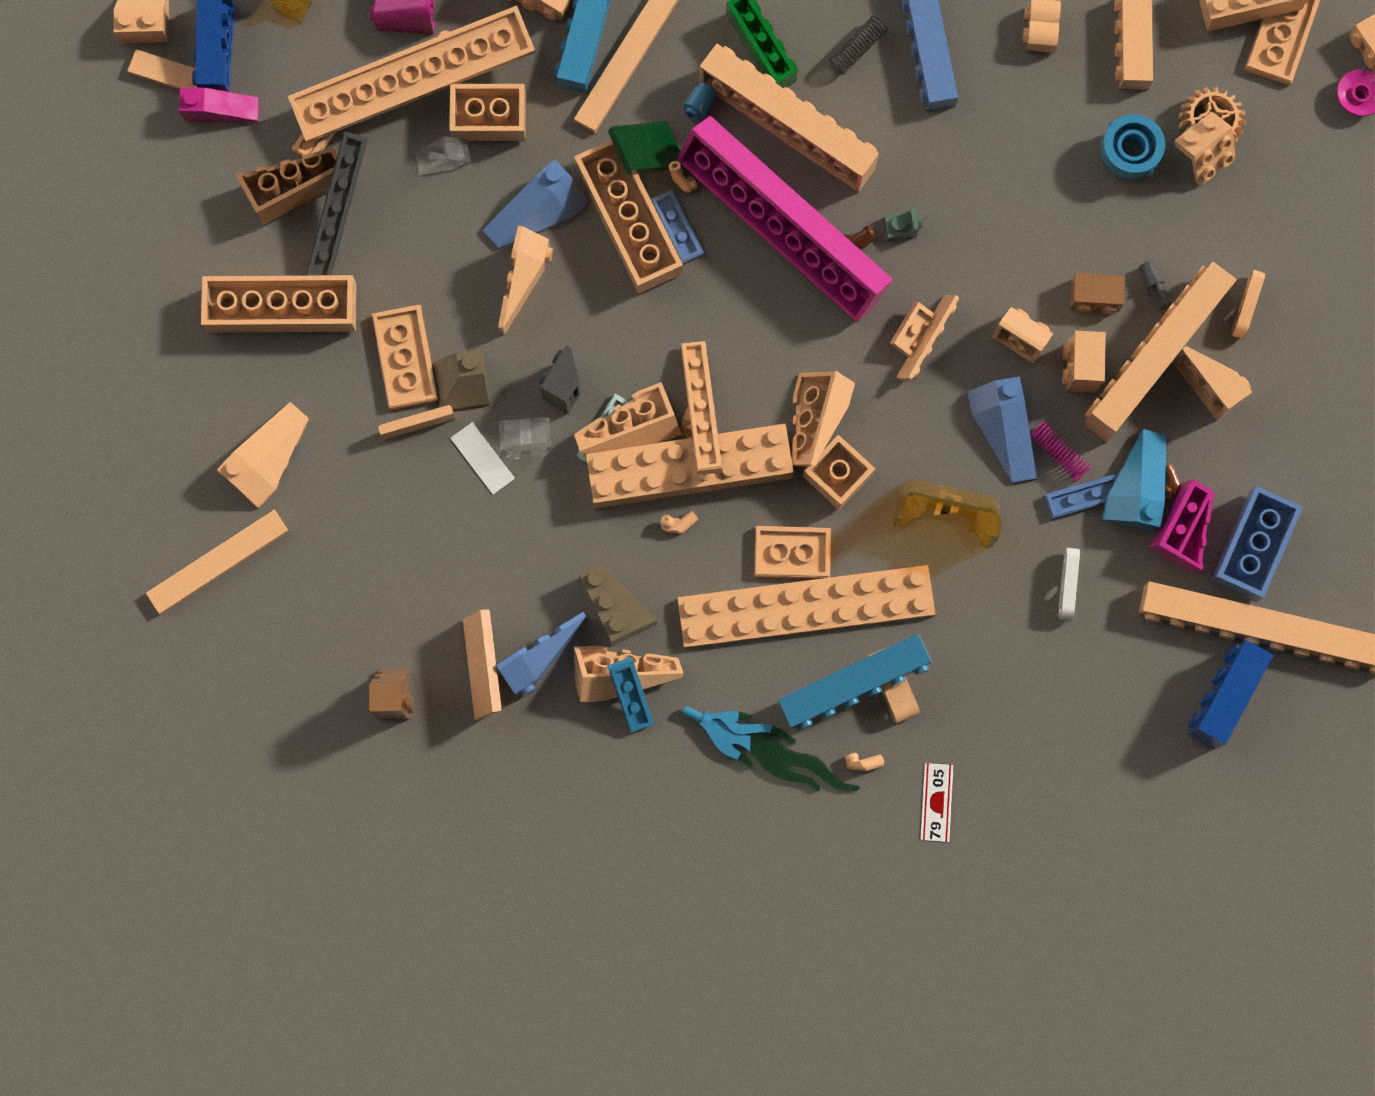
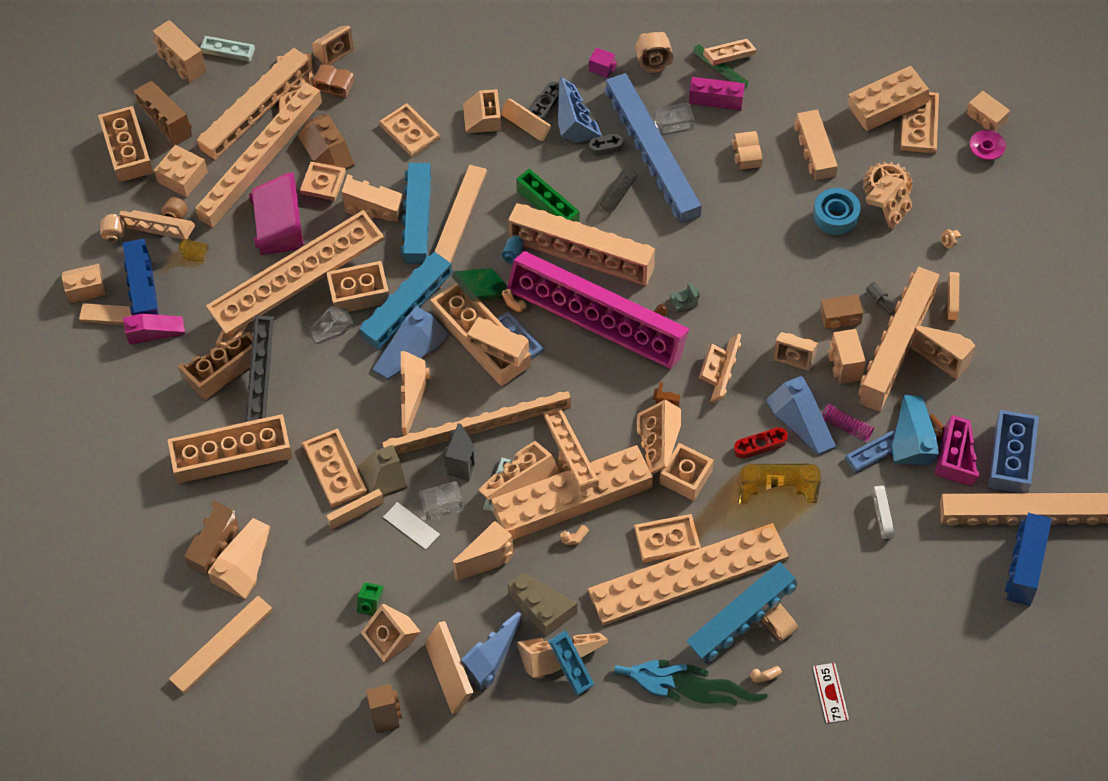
camera: 10 degrees left, 20 degrees down
(233, 423) = (213, 539): none -> medium nougat wedge
(408, 545) = (369, 598): none -> green bracket
(422, 598) = (389, 632): none -> light nougat slope
(545, 144) = (410, 293): none -> dark azure brick
(563, 523) = (484, 553): none -> light nougat slope
(603, 340) = (480, 423): none -> light nougat plate
(645, 240) = (498, 341): none -> light nougat brick
(843, 364) = (671, 397): none -> dark orange bracket
(924, 447) = (754, 449): none -> red beam
(1268, 219) = (949, 237): none -> light nougat plate

